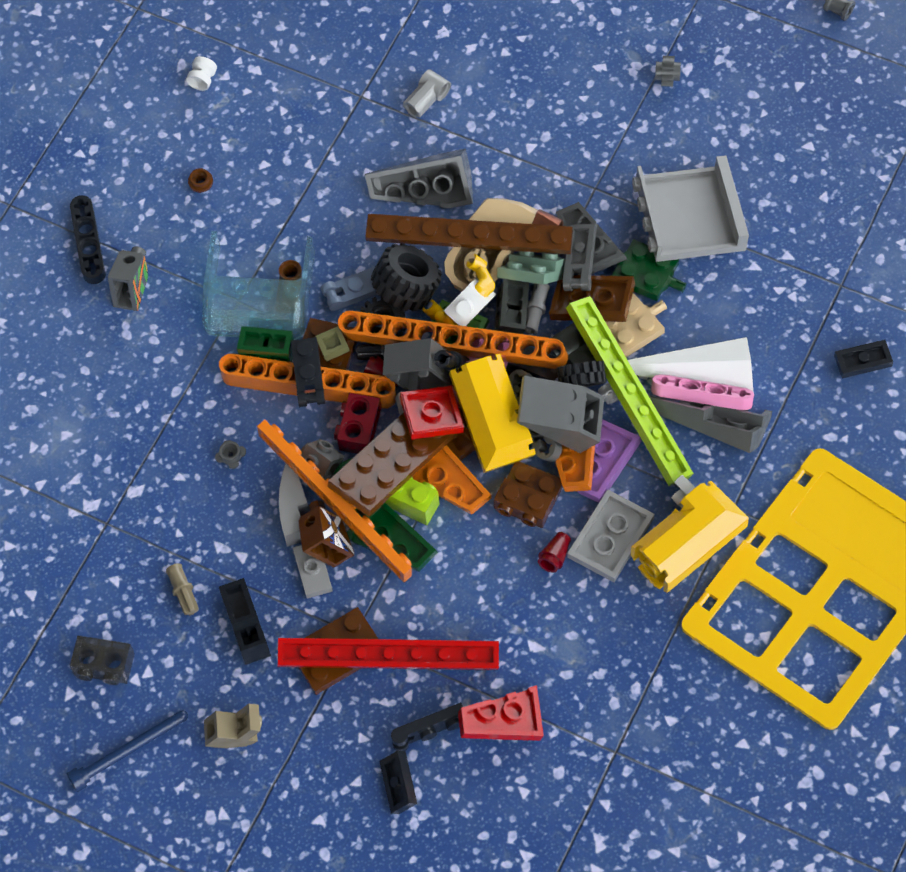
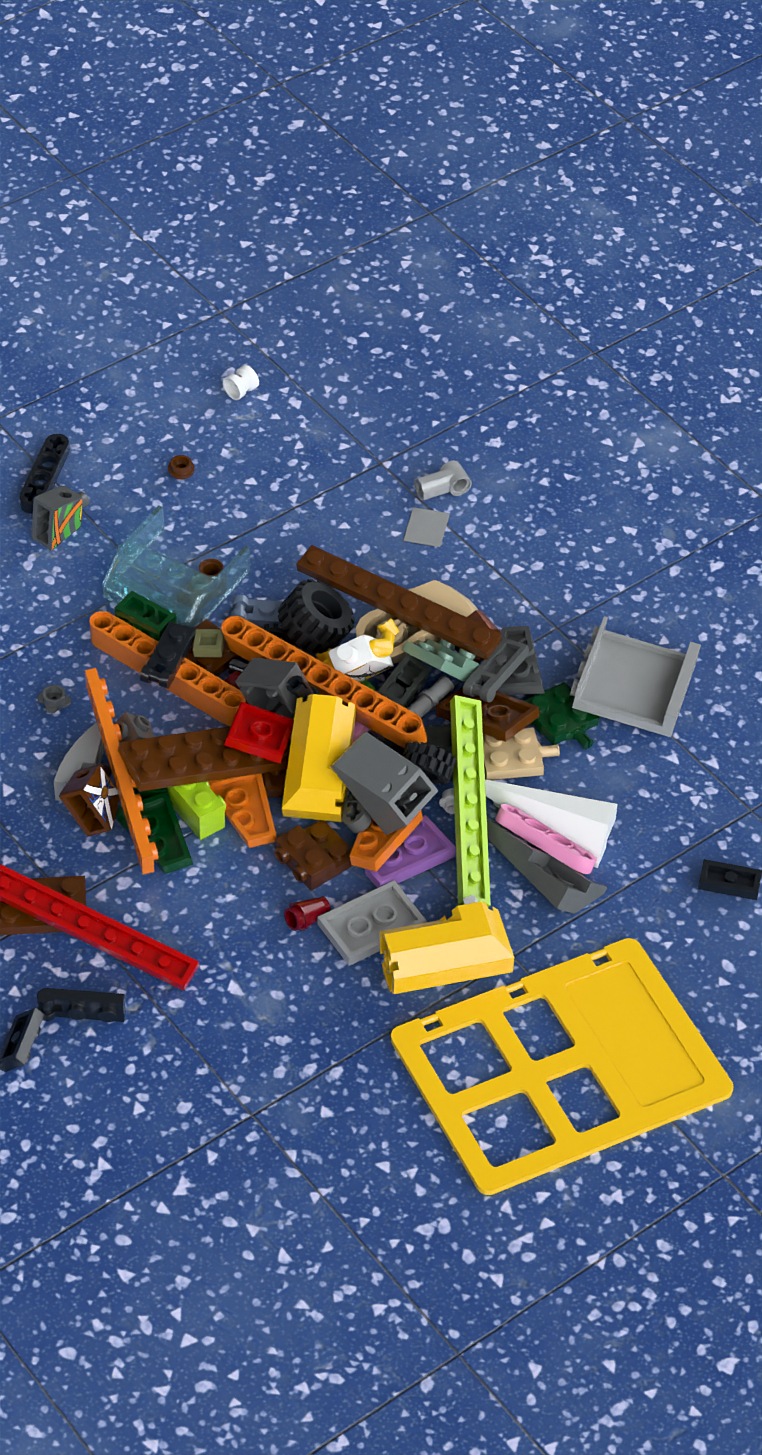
camera: 20 degrees right, 15 degrees down
(312, 573) = (62, 831): light grey plate -> none
(363, 424) = (191, 715): dark red brick -> none
(433, 180) = (397, 554): dark grey wedge -> none
(434, 138) = (426, 527): none -> light grey sticker
(506, 718) = (159, 1030): wing -> none
(667, 71) = (691, 555): dark grey gear -> none

